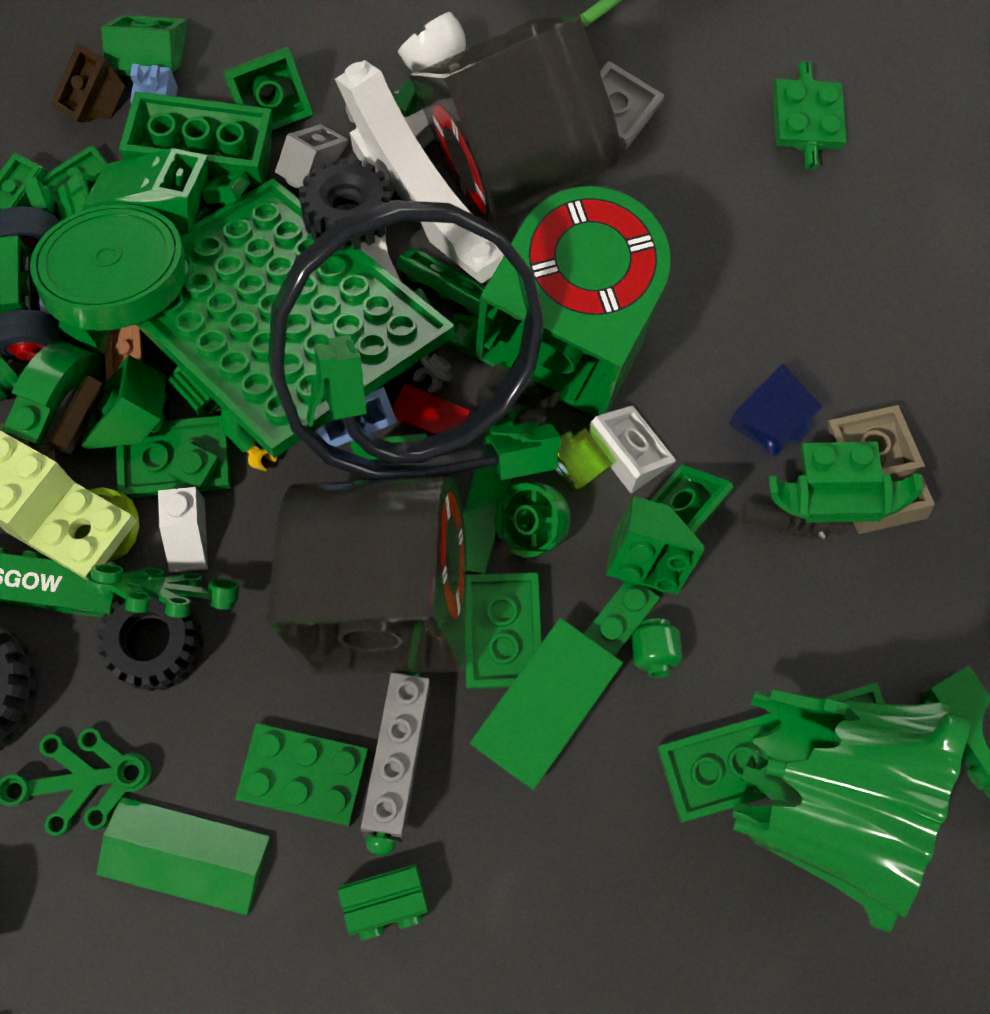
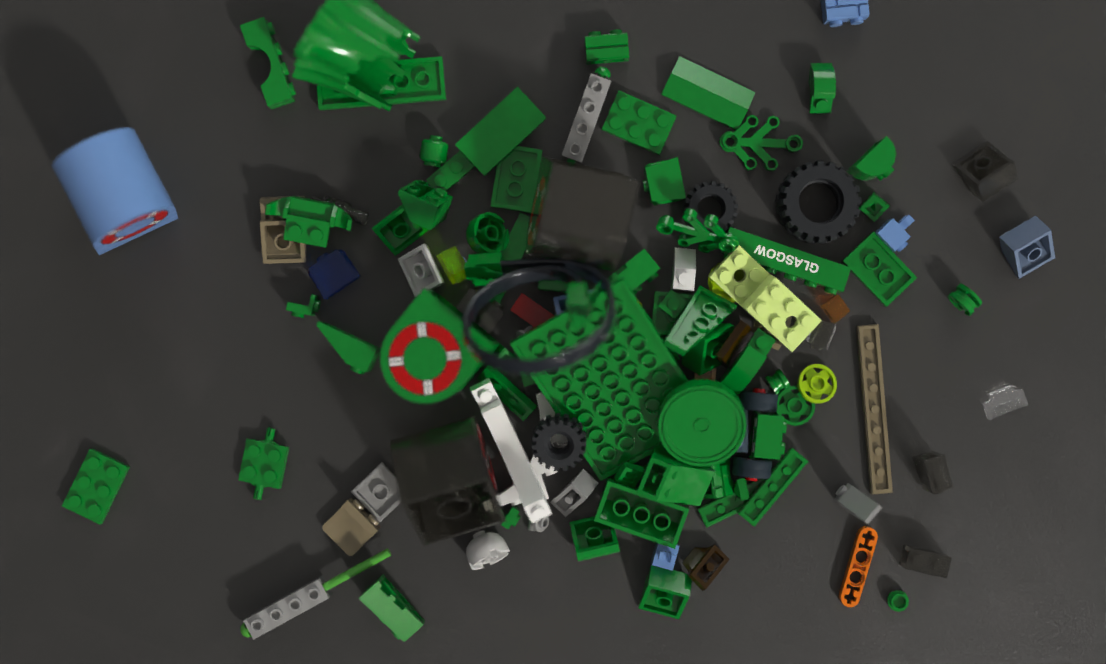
camera: 165 degrees left, 15 degrees up
(139, 437) = (699, 318): none -> green wing
(239, 674) = (664, 182): none -> green torso
(257, 510) = (637, 271): none -> green wedge
(649, 49) = (351, 526): none -> dark tan bracket
(723, 298) = (353, 350): none -> green slope
(813, 346) = (299, 310): none -> green bracket

